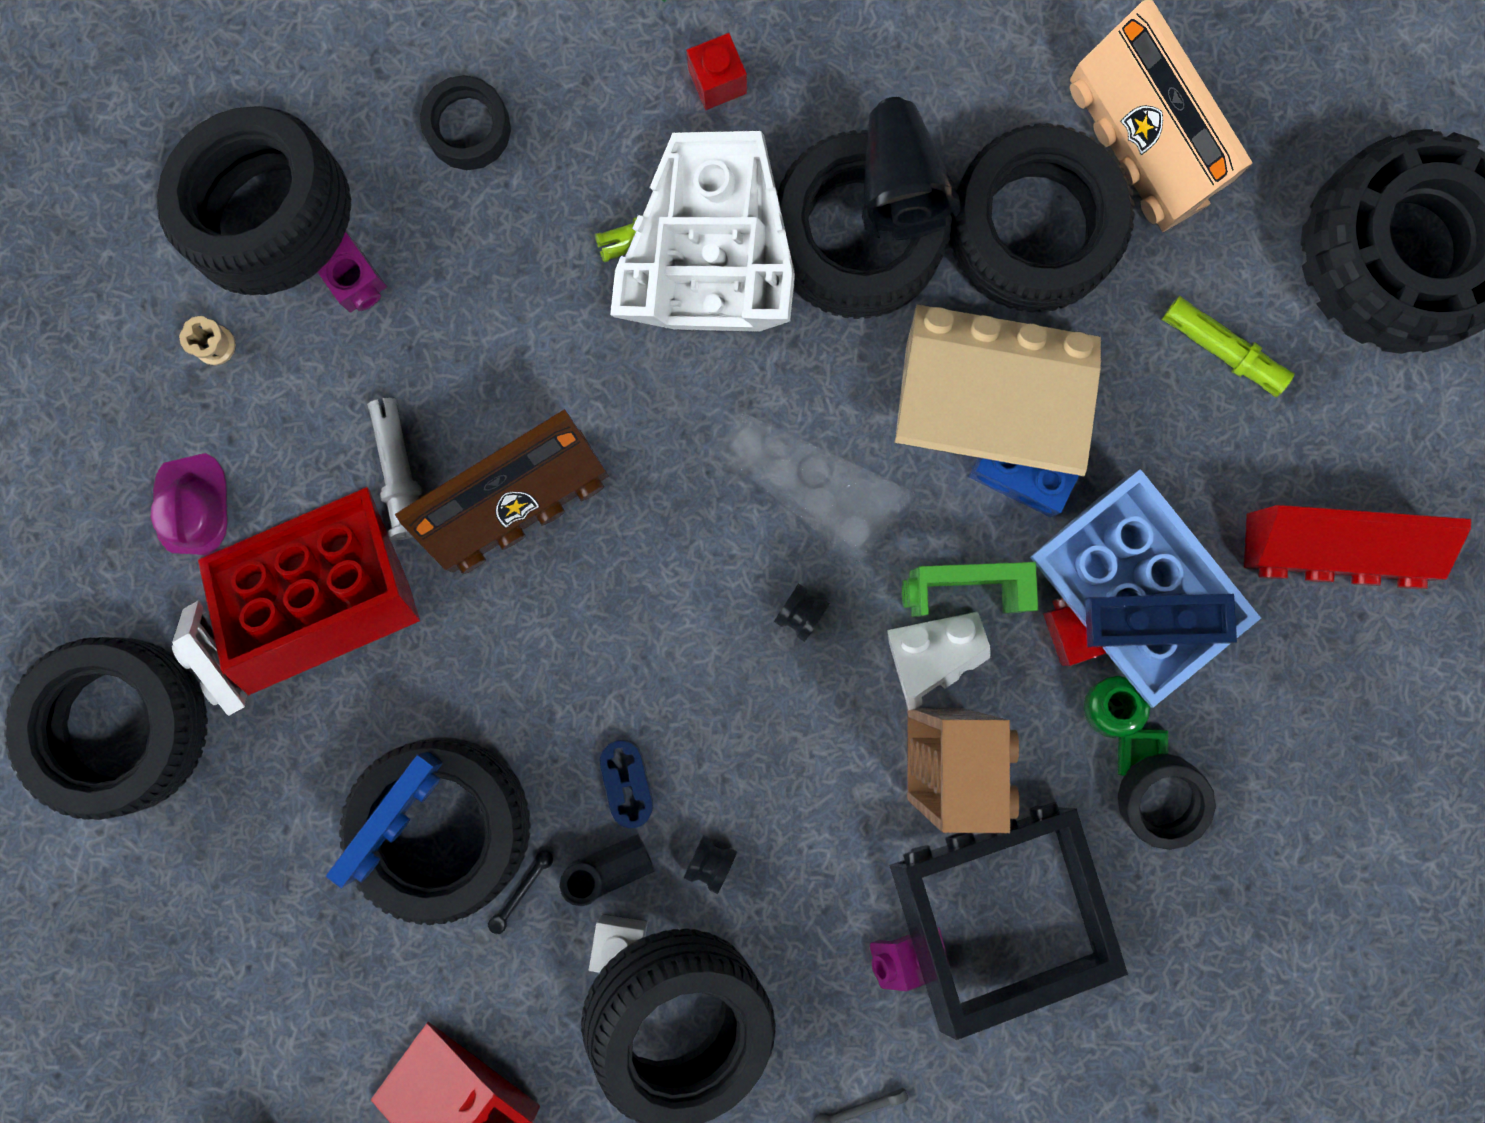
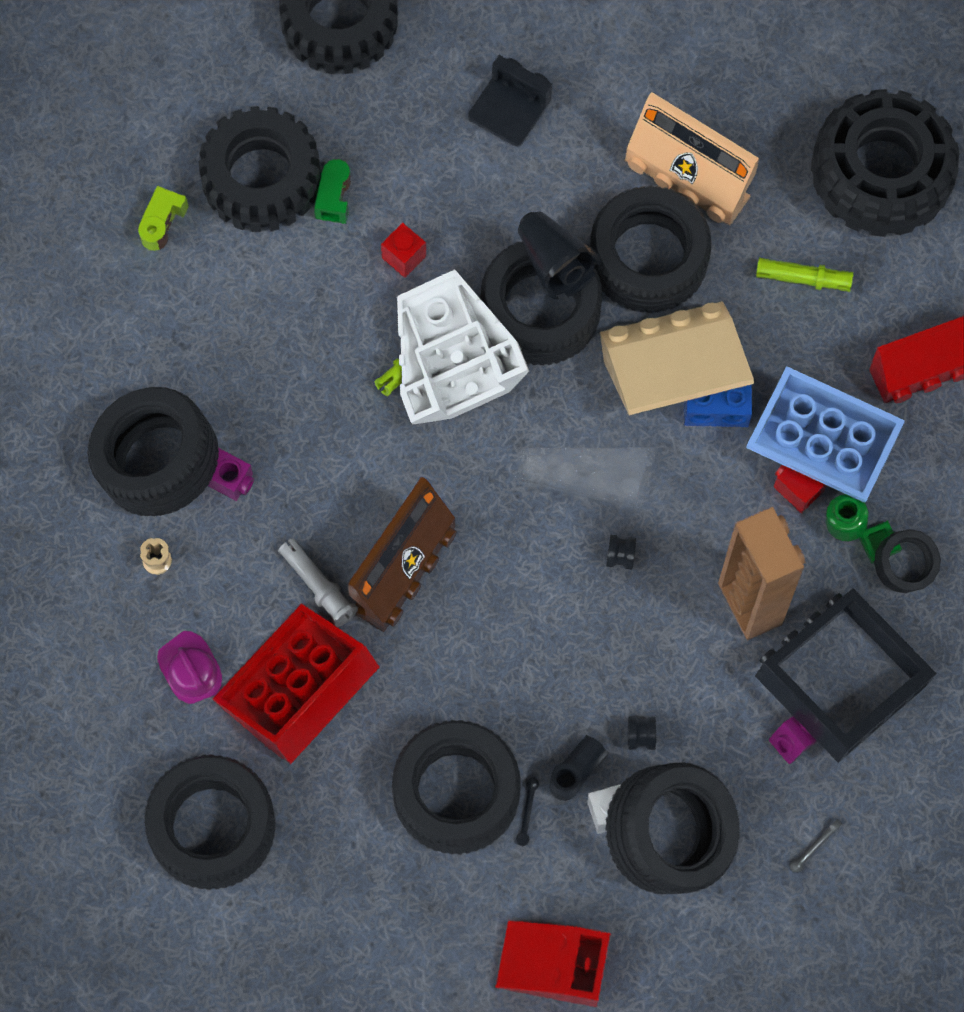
camera: 30 degrees left, 15 degrees down
(198, 651) = (250, 747): white wing -> none
(386, 821) = (429, 777): blue plate -> none
(446, 94) = (261, 373): black tyre -> none
(615, 786) = (568, 705): dark blue beam -> none
(937, 653) = (713, 537): white wing -> none
(1017, 582) = (739, 466): bright green panel -> none
(1160, 620) = (842, 445): dark blue plate -> none

